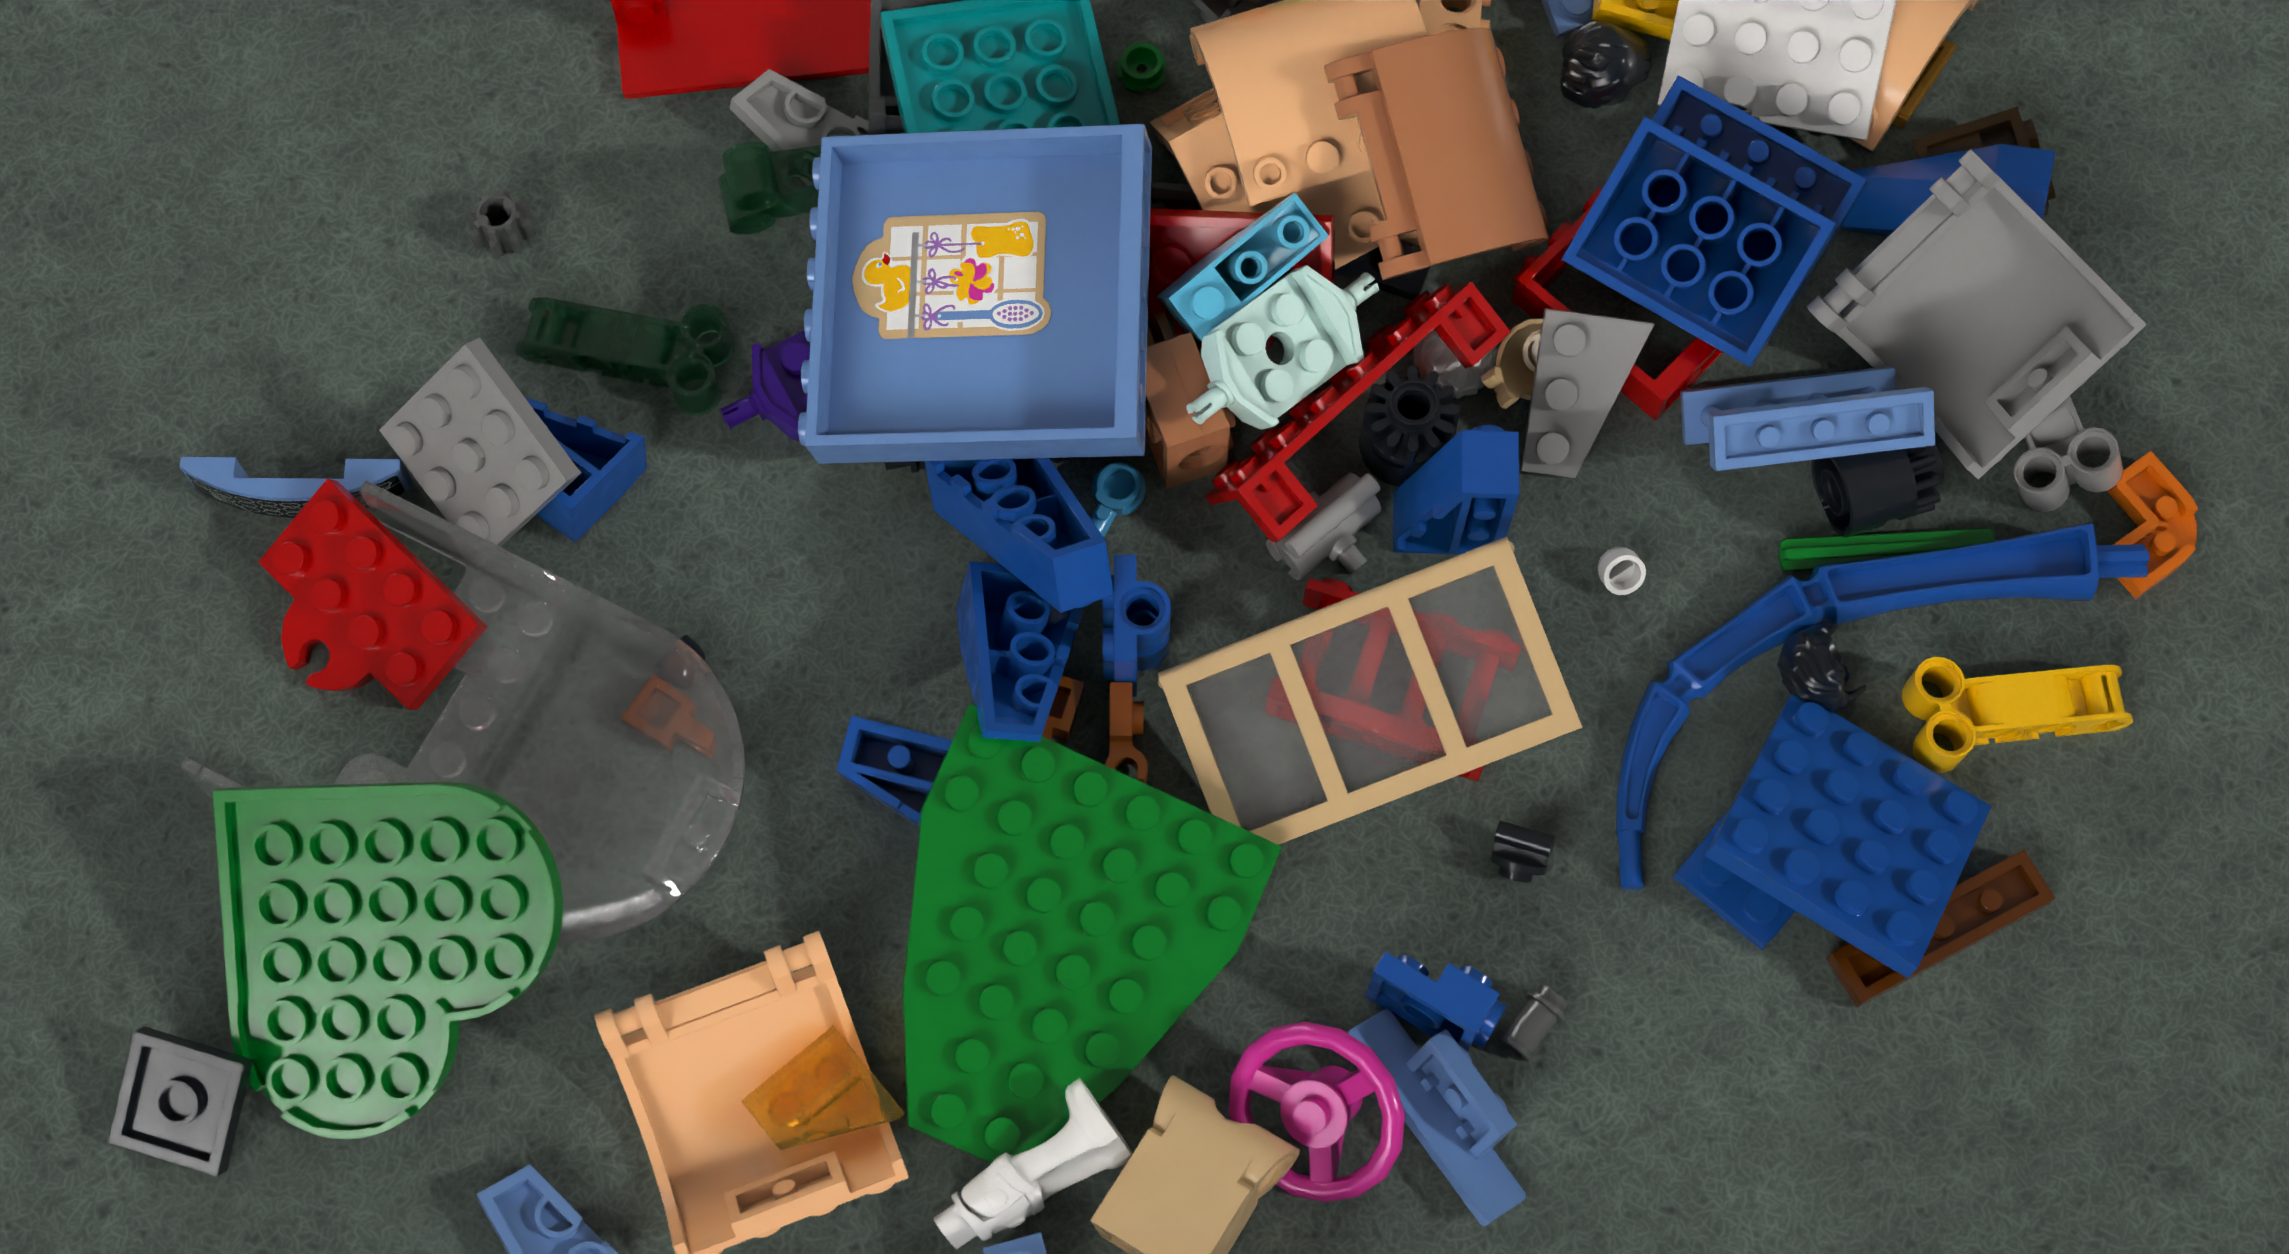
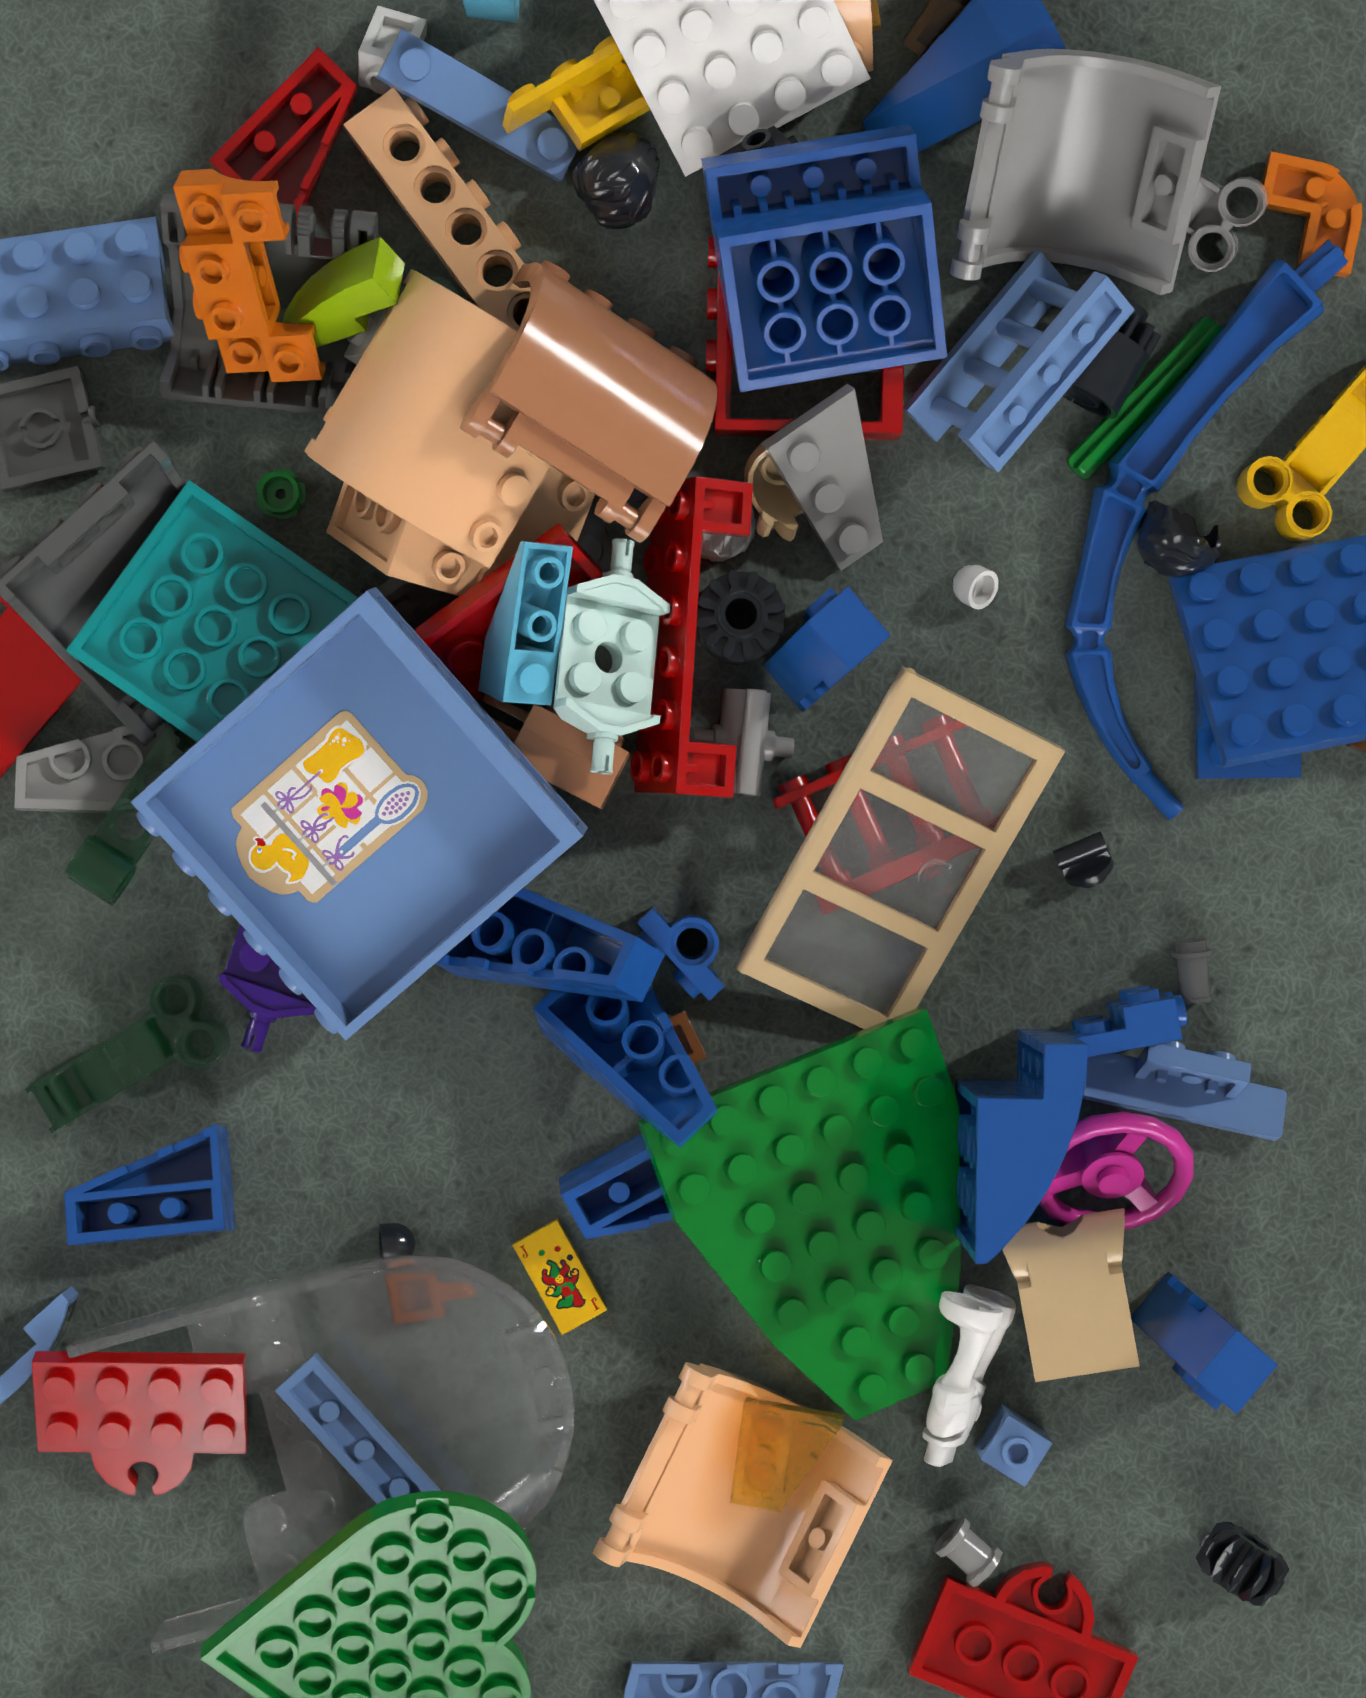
camera: 40 degrees left, 20 degrees up
(479, 447) = (118, 1248): light grey plate -> none
(506, 735) = (352, 1432): none -> medium blue plate
(784, 804) = (560, 1276): none -> yellow tile
(1117, 492) = (577, 861): dark azure plate -> none
(1125, 721) = (736, 1012): dark orange plate -> none
(1260, 974) = (1016, 1138): none -> blue slope

